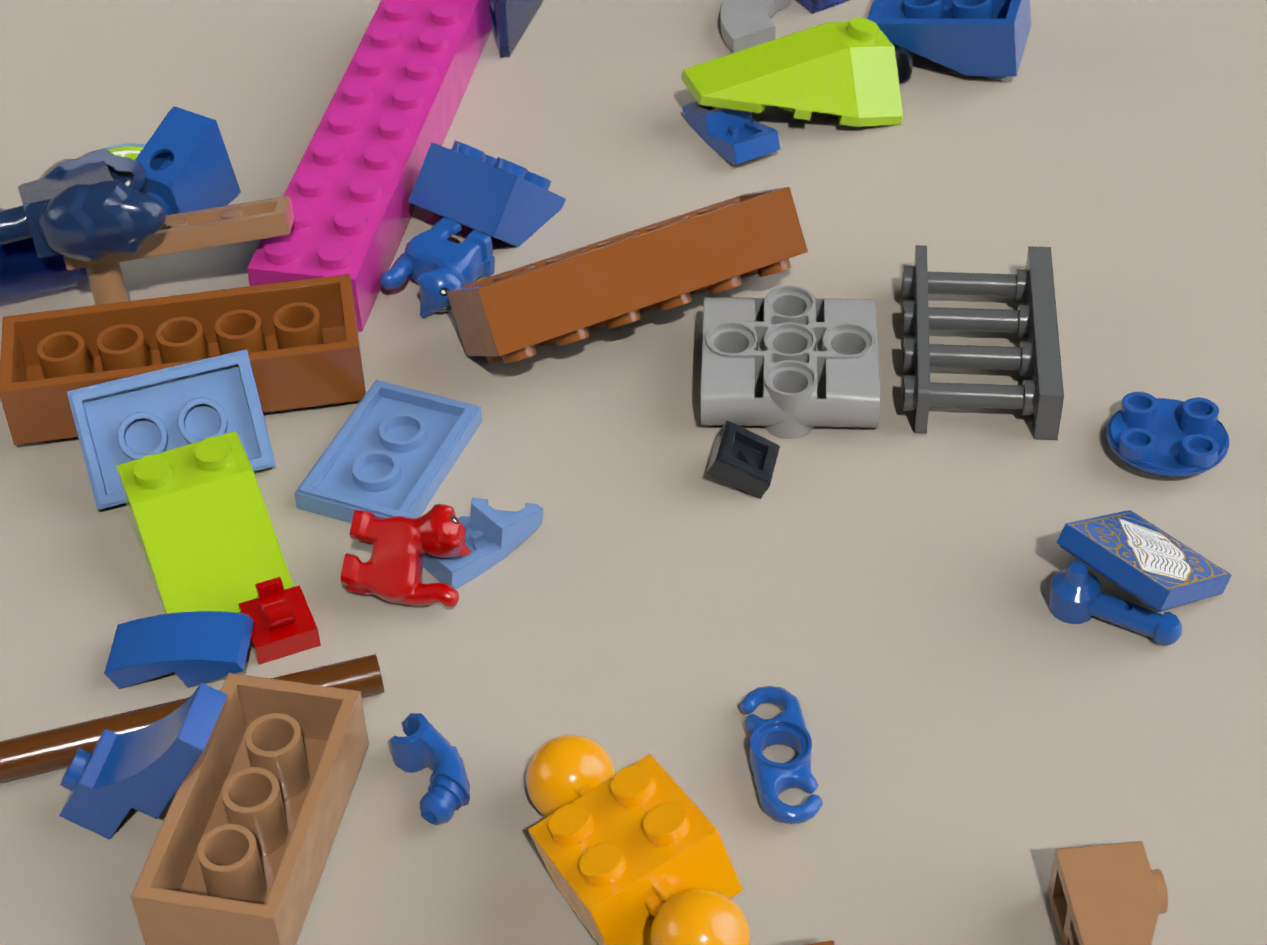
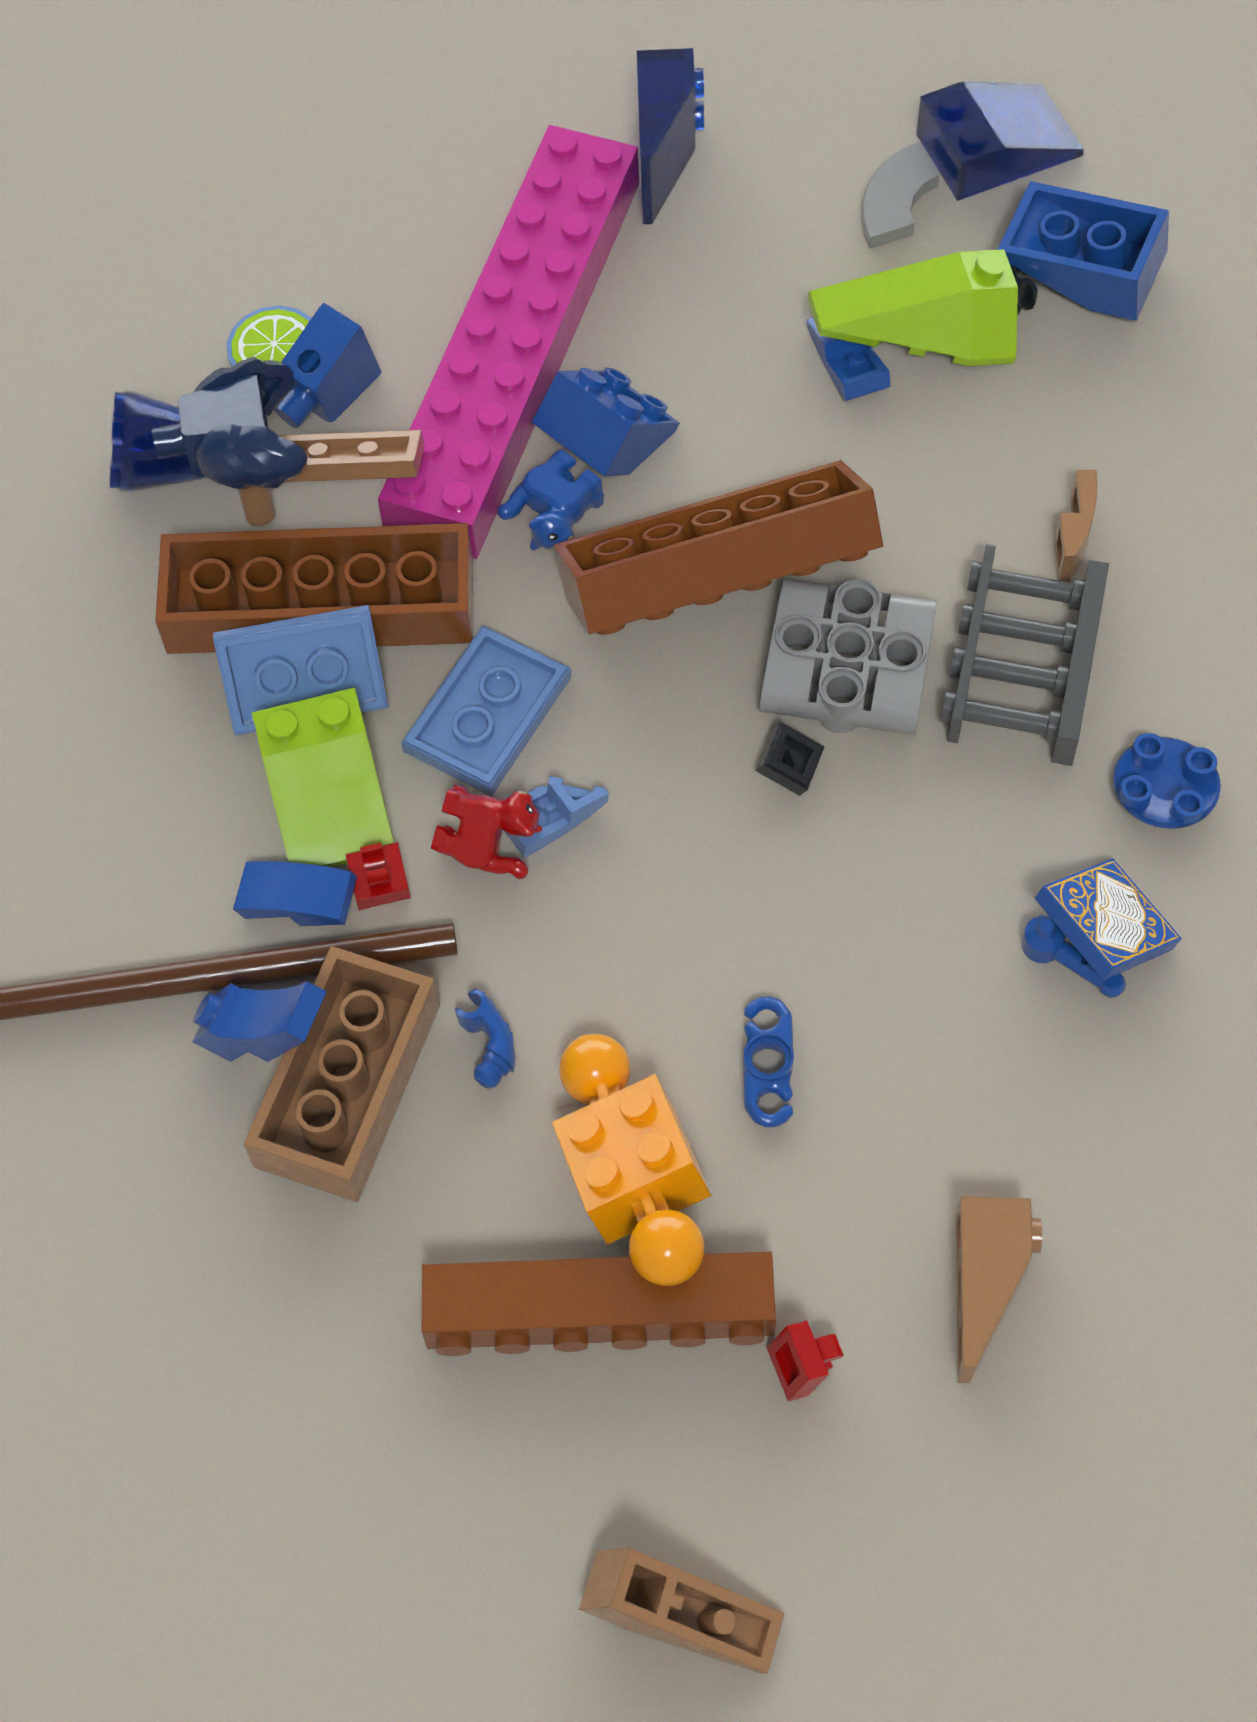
camera: 10 degrees right, 20 degrees up
(1003, 226) = (1075, 527): none -> medium nougat slope

